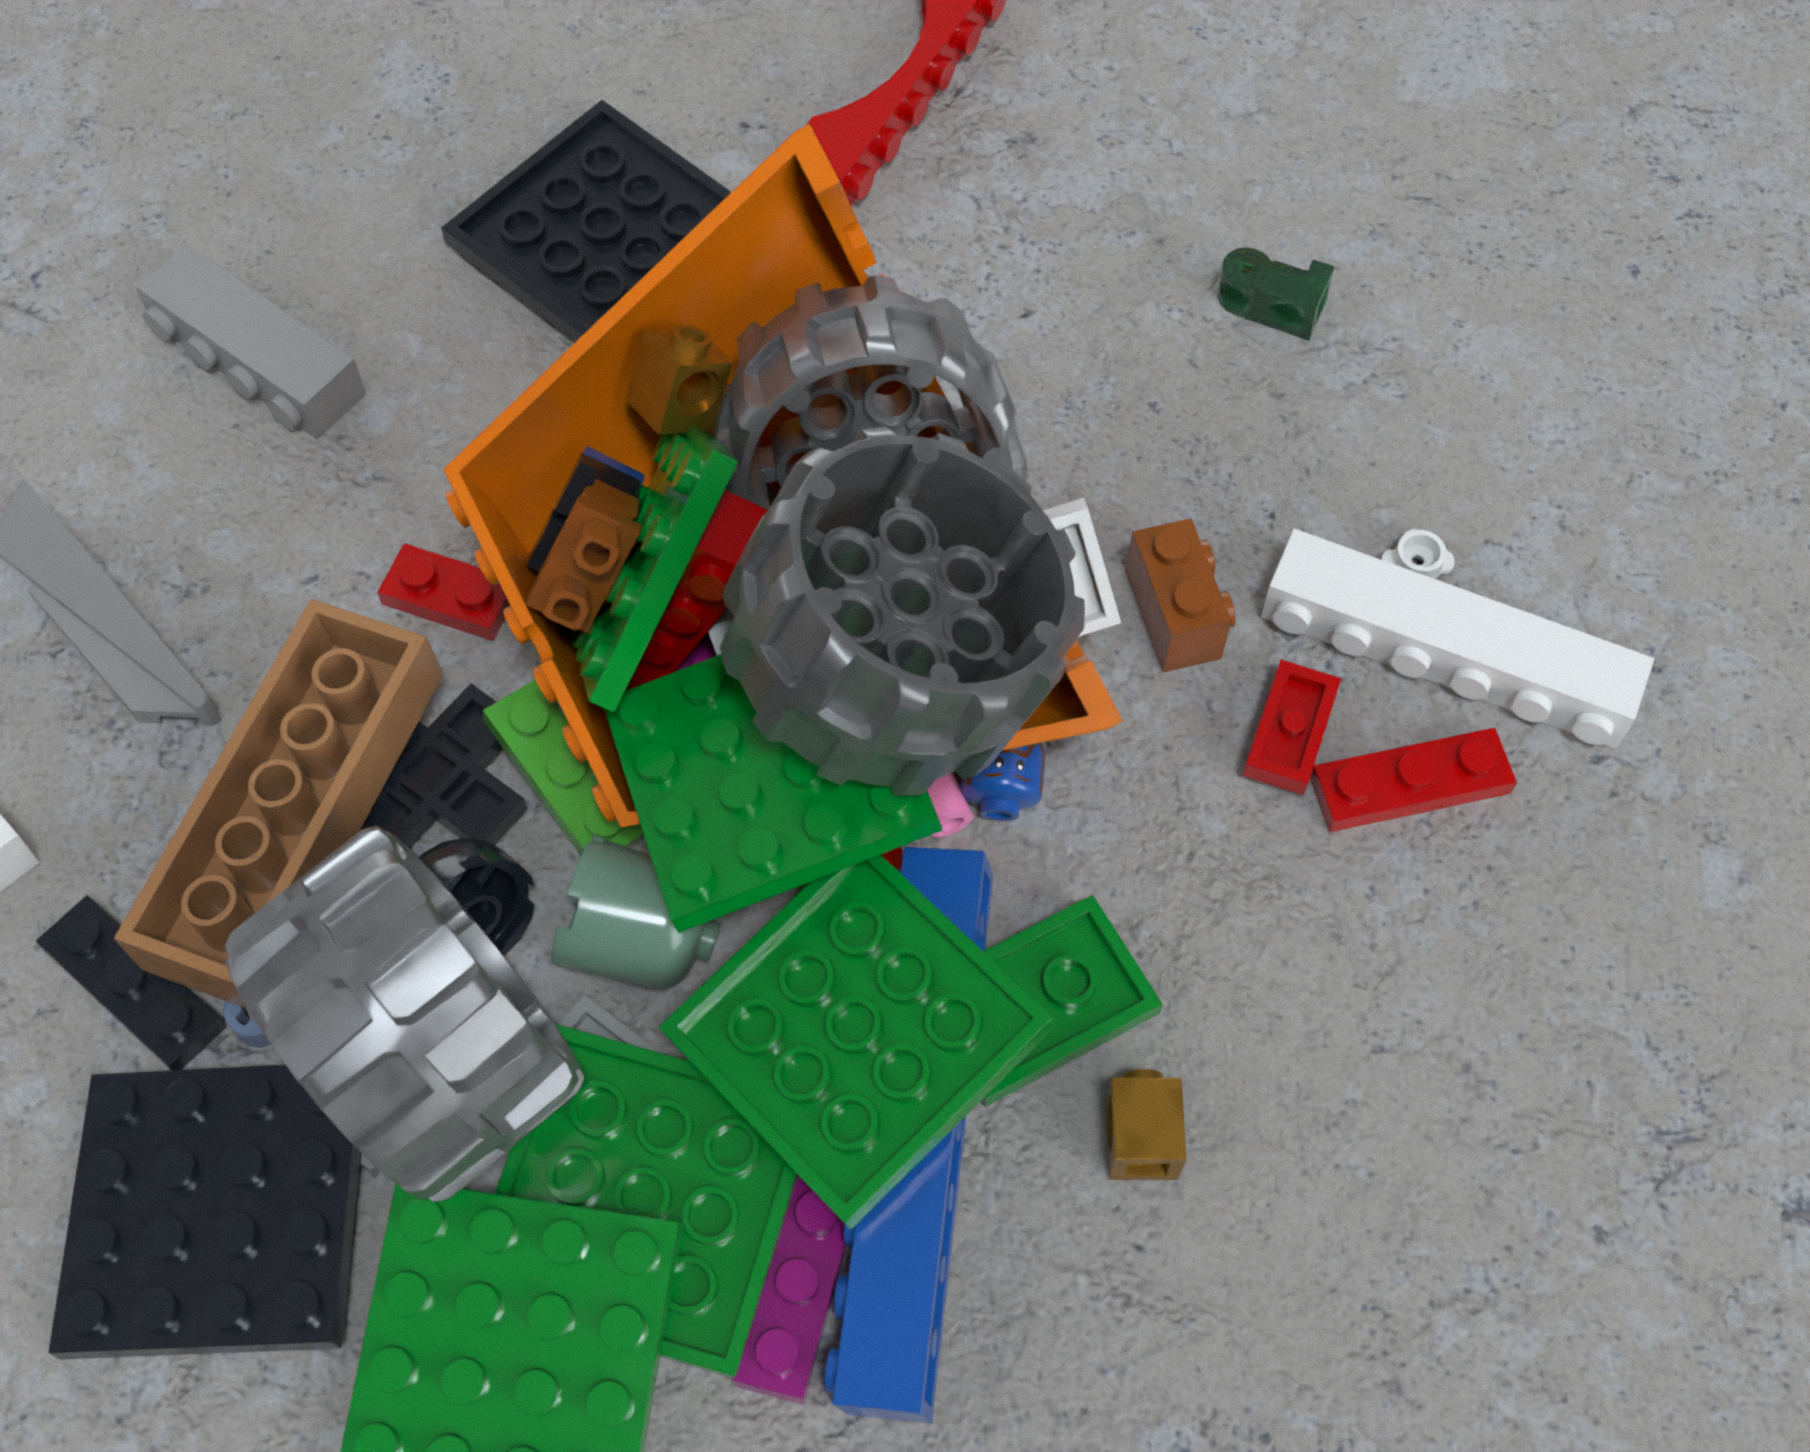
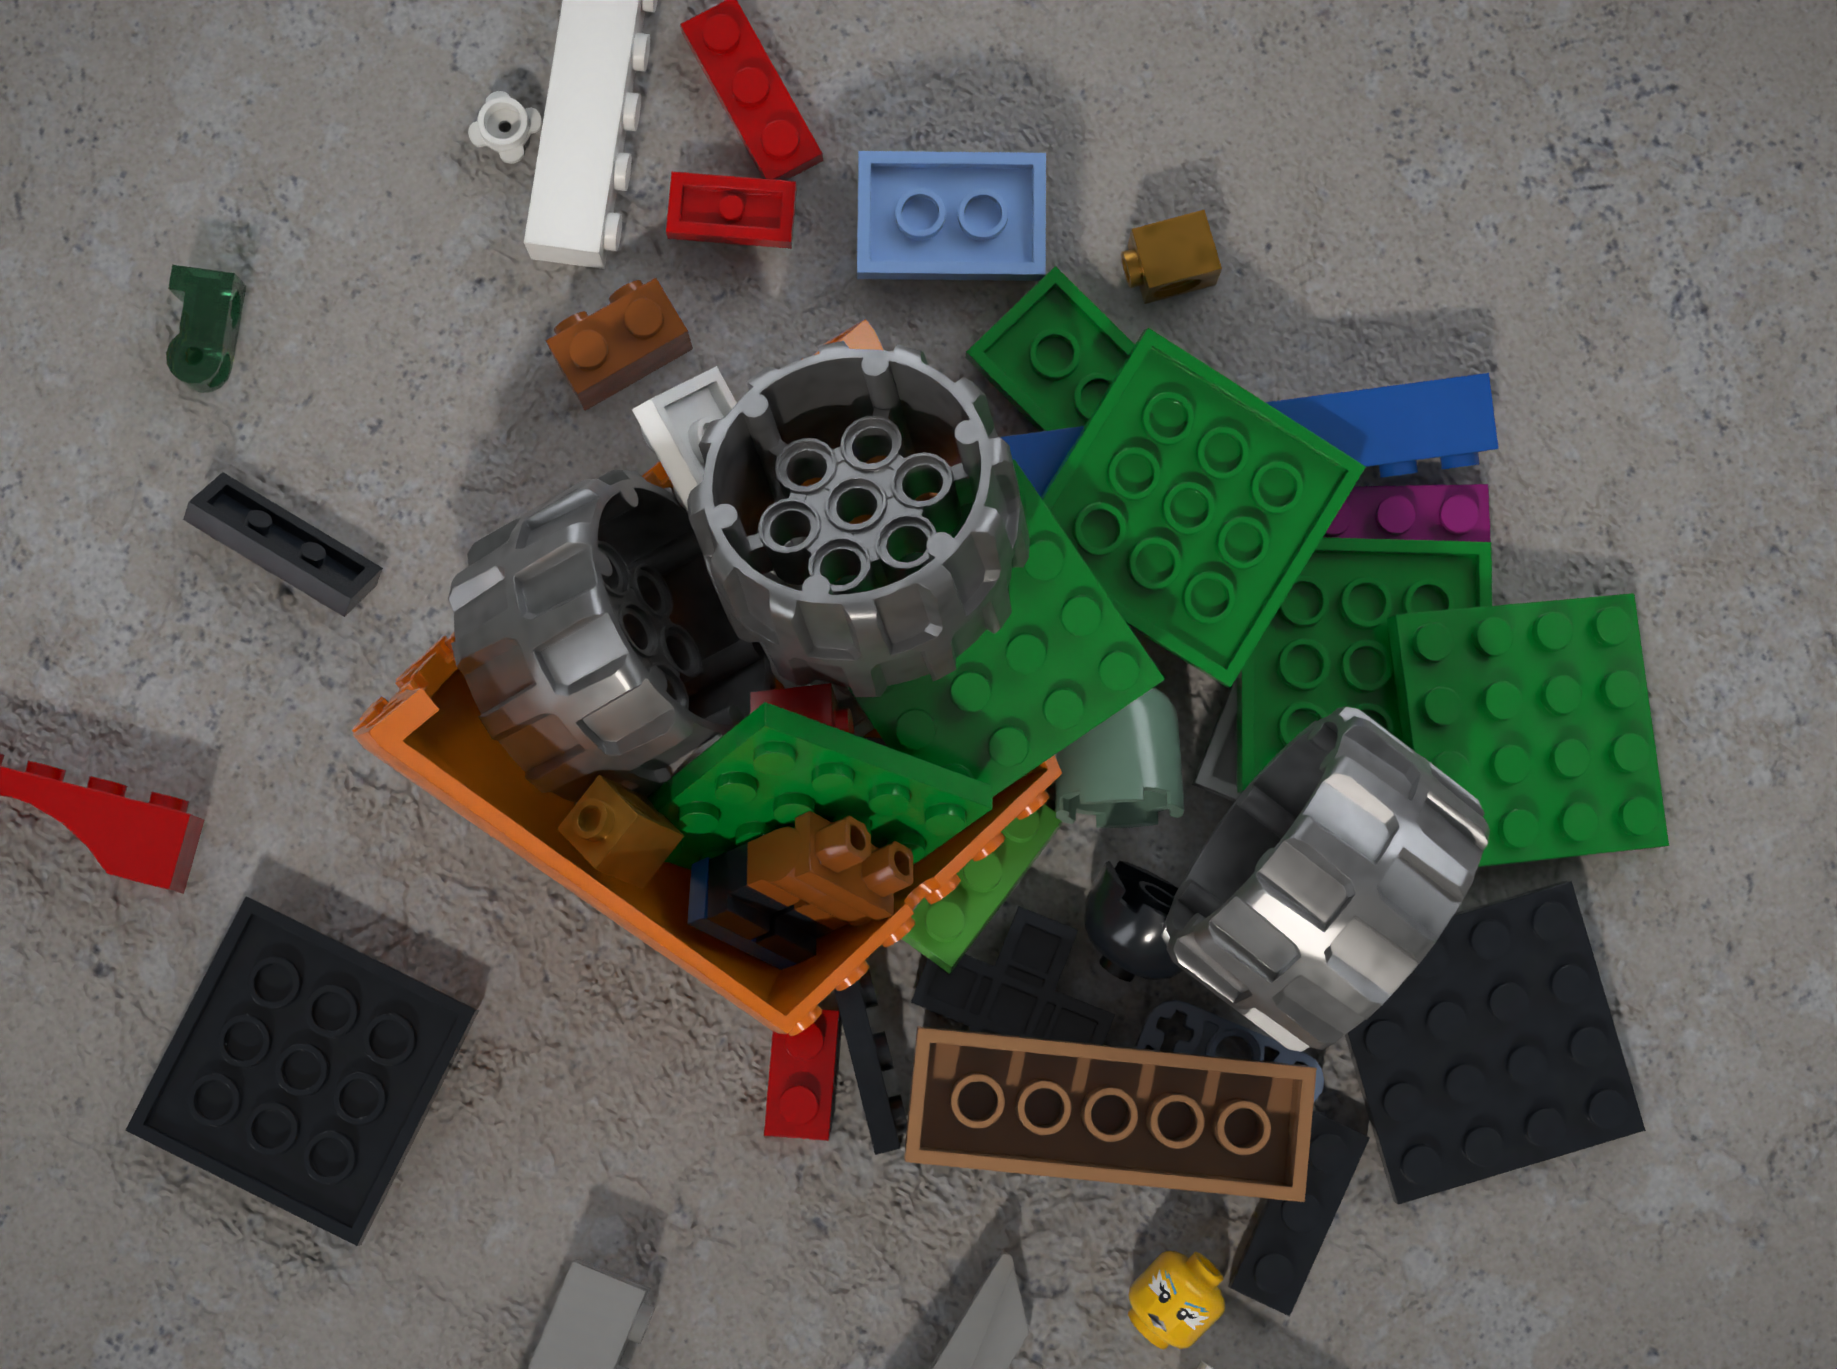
camera: 105 degrees left, 20 degrees up
(95, 835) = (1176, 1299): none -> yellow head
(460, 634) = (870, 1058): none -> black plate
(1060, 305) = (282, 544): none -> black plate
(1241, 926) = (951, 215): none -> light blue plate

